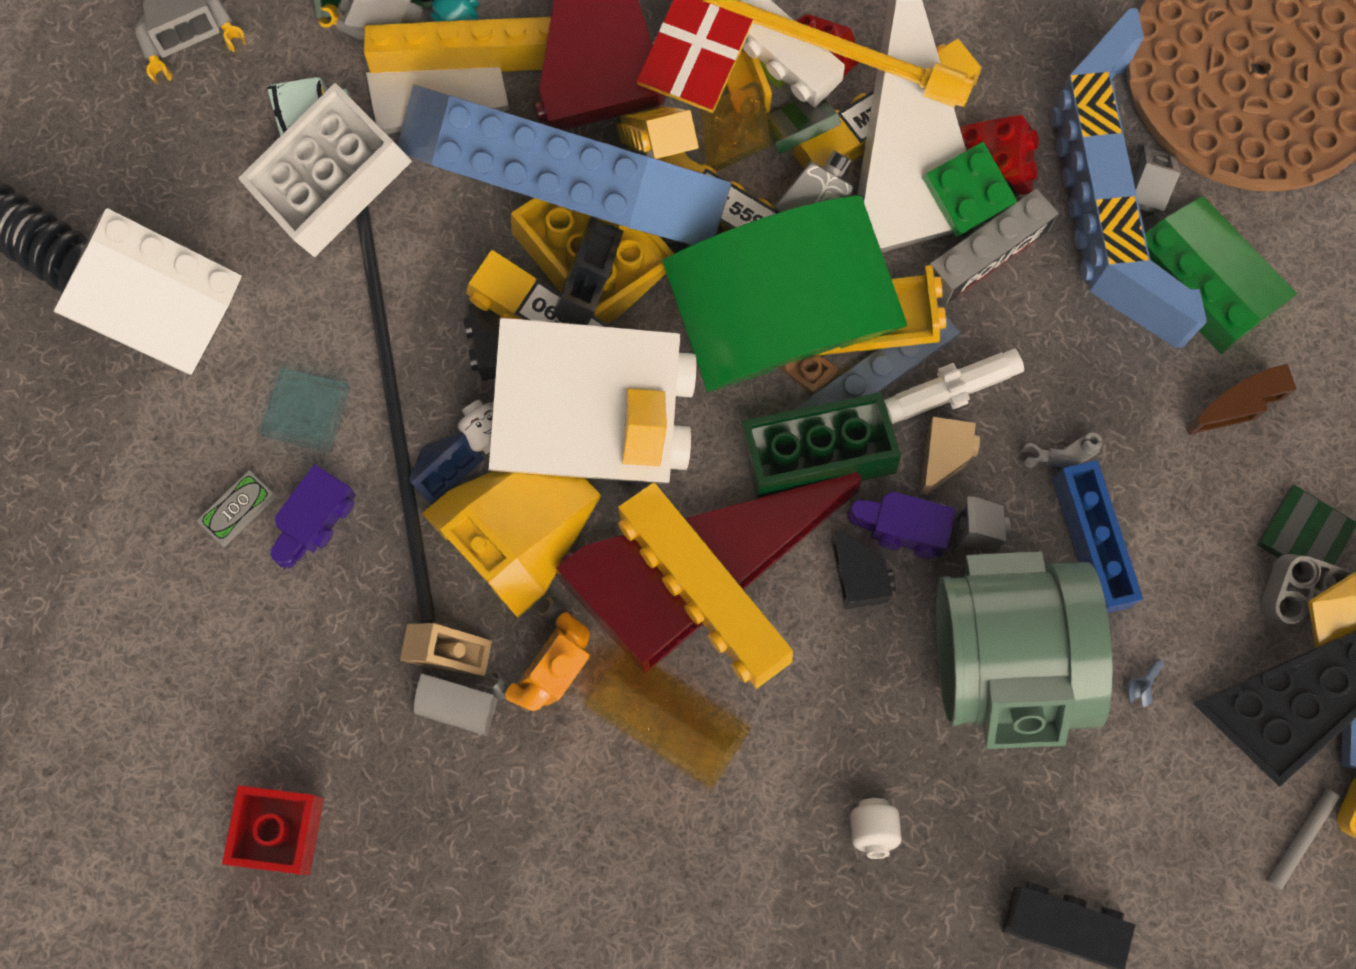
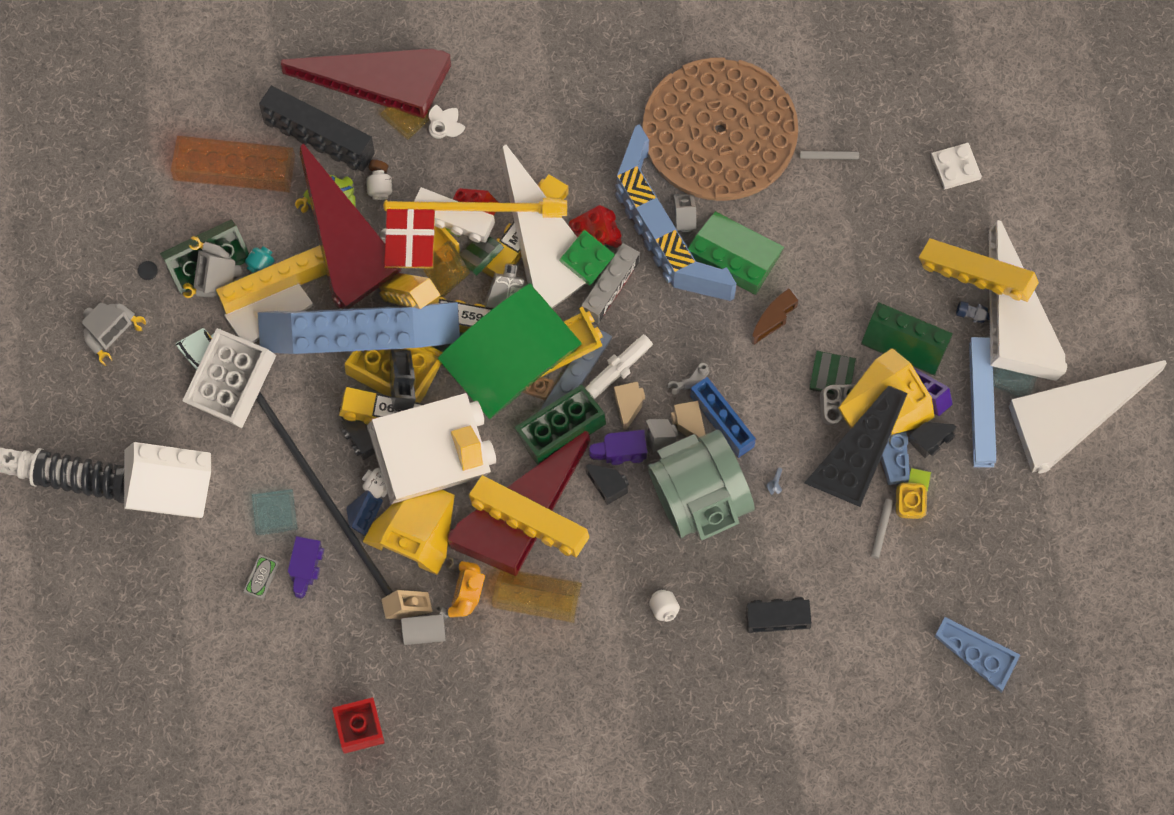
camera: 20 degrees left, 5 degrees down
(1037, 520) = (688, 419): none -> tan slope

